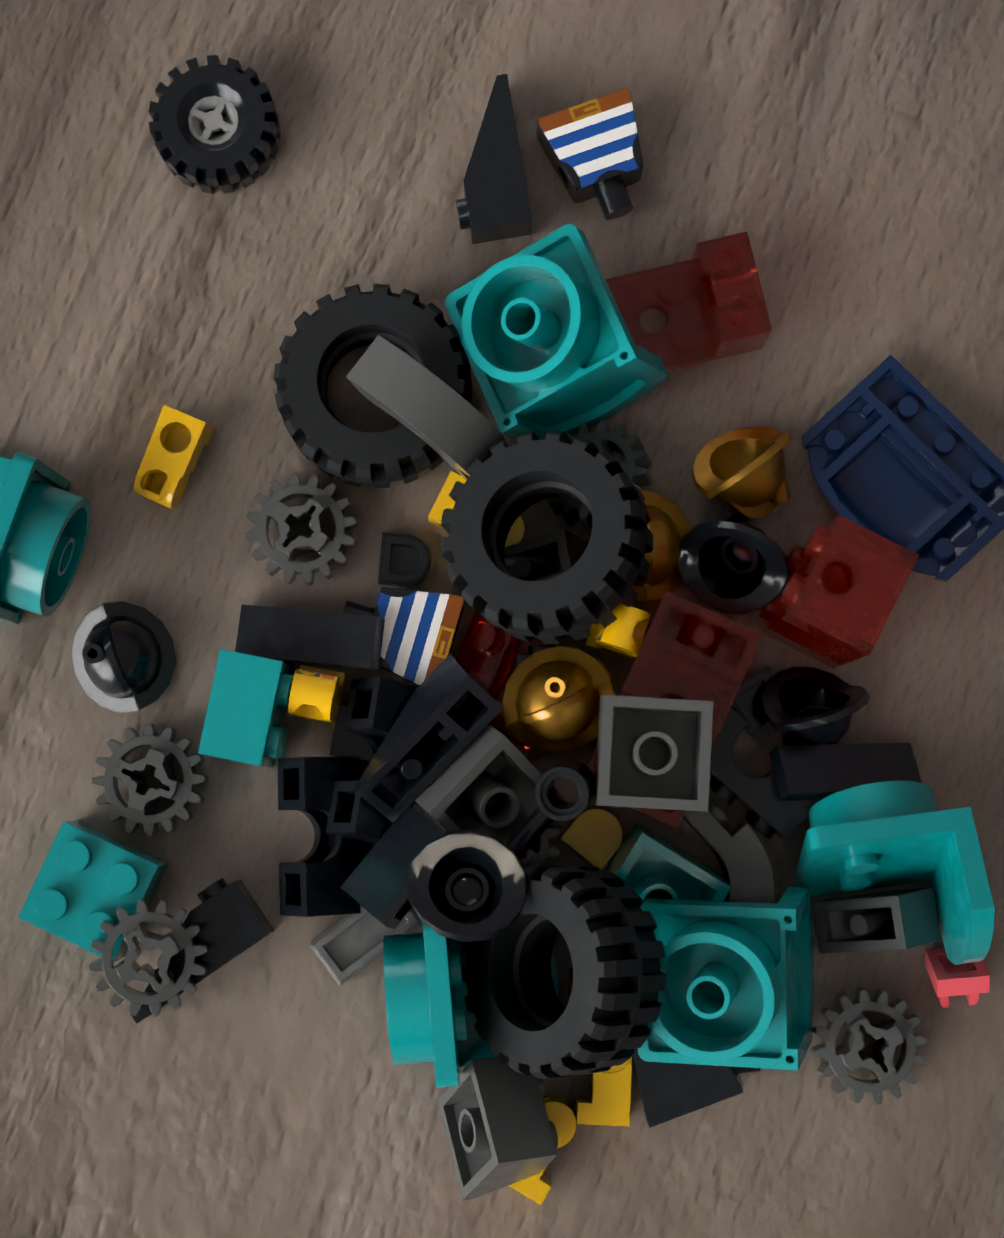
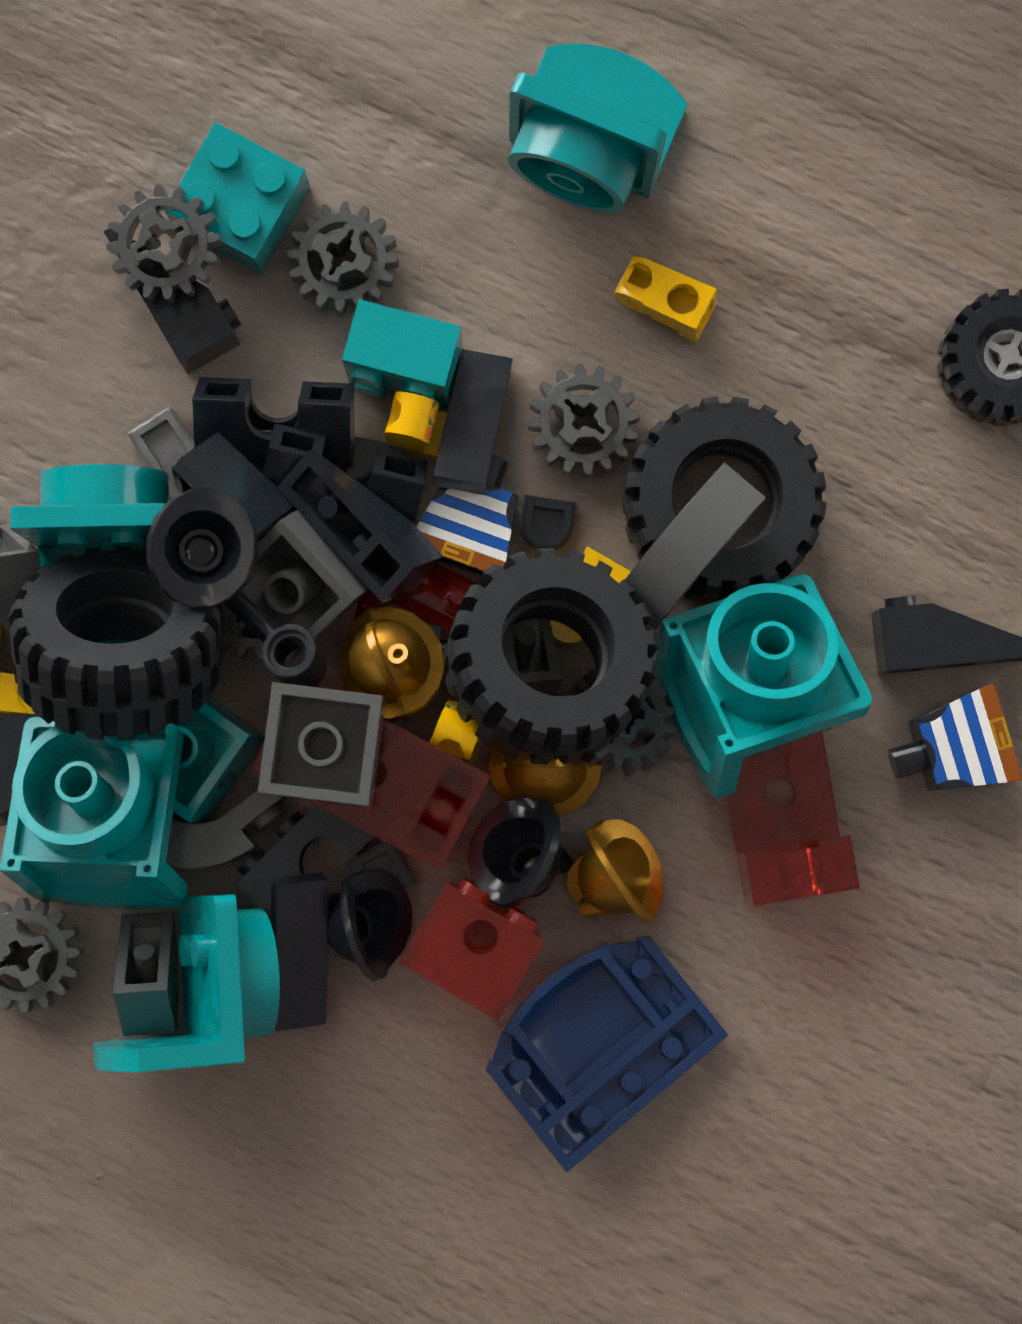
camera: 90 degrees right, 0 degrees up
(123, 656) = (468, 240): black helmet -> none
(594, 836) = (251, 694): yellow tile -> none
(956, 980) = (79, 1049): coral tile -> none

